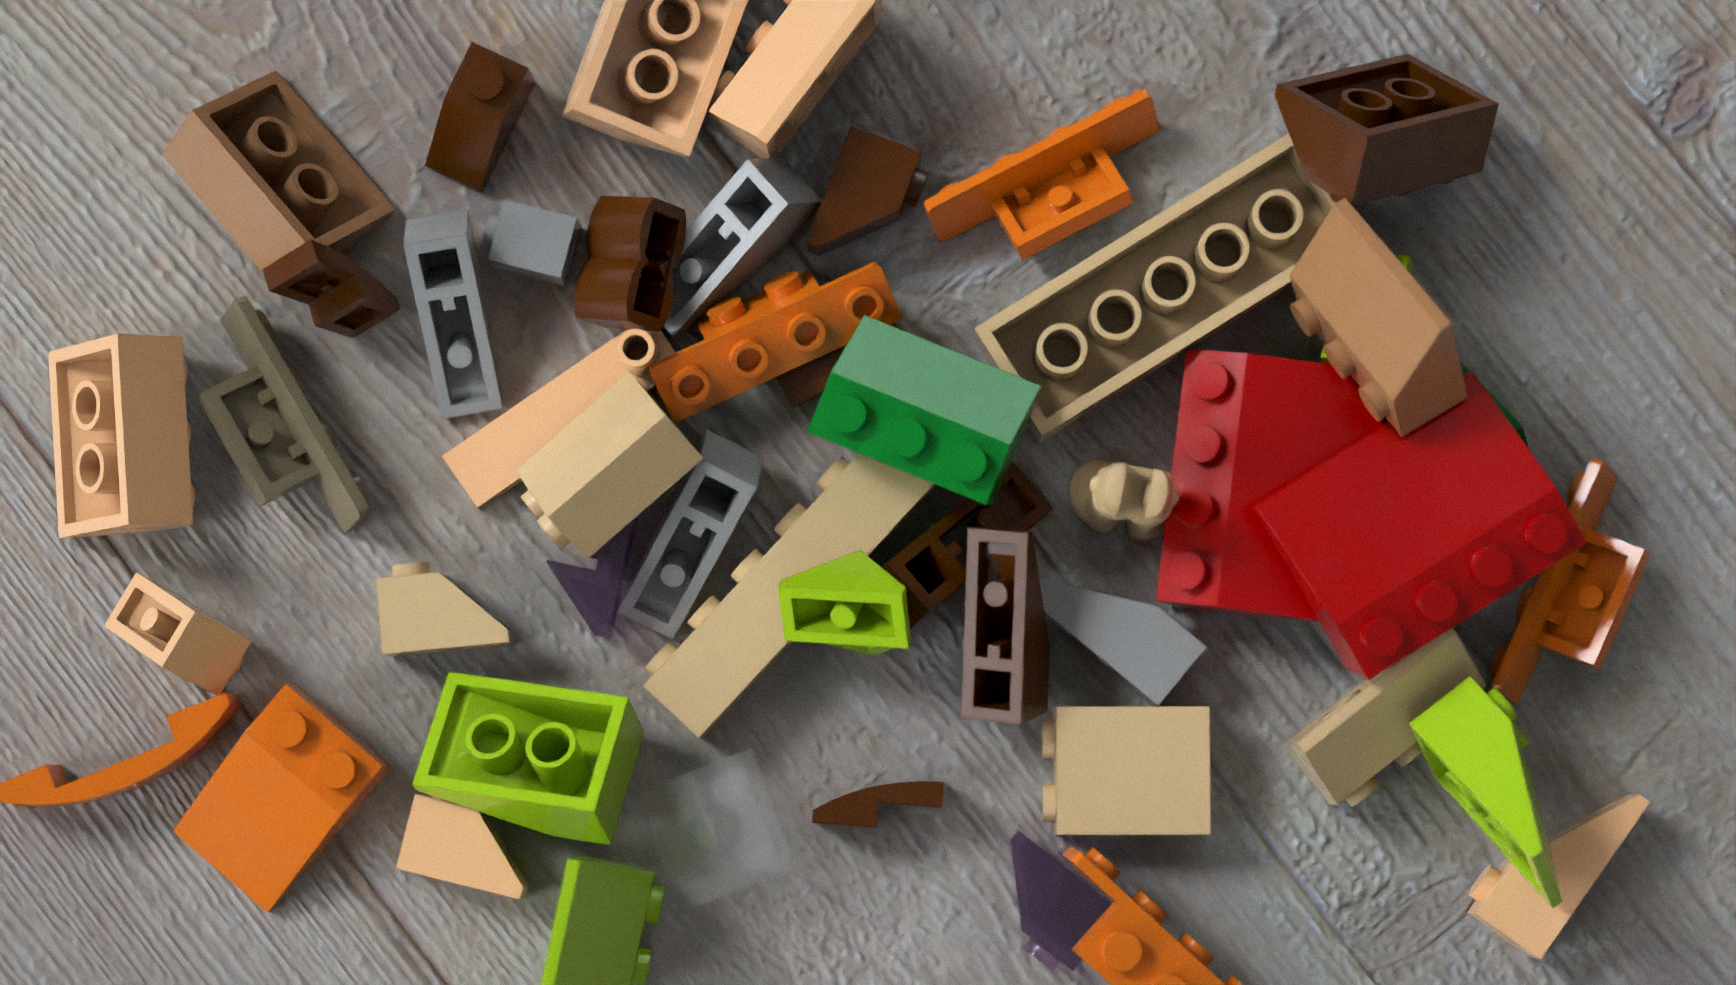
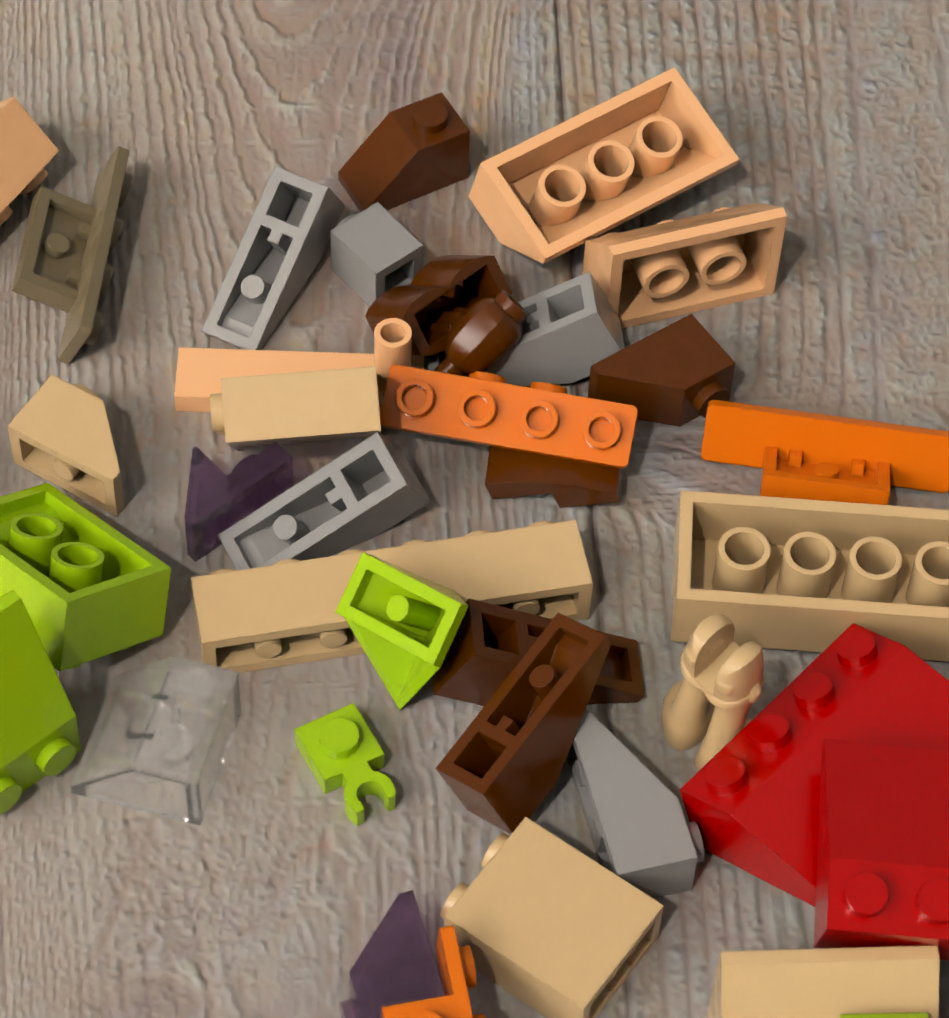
camera: 30 degrees right, 30 degrees down
(274, 173) = (218, 107): medium nougat slope -> none
(335, 288) = (199, 178): reddish brown slope -> none
(699, 283) = (483, 335): none -> reddish brown plant
(861, 806) = (296, 797): reddish brown slope -> none
(862, 732) = (346, 755): none -> lime plate
(925, 410) = (587, 516): green slope -> none

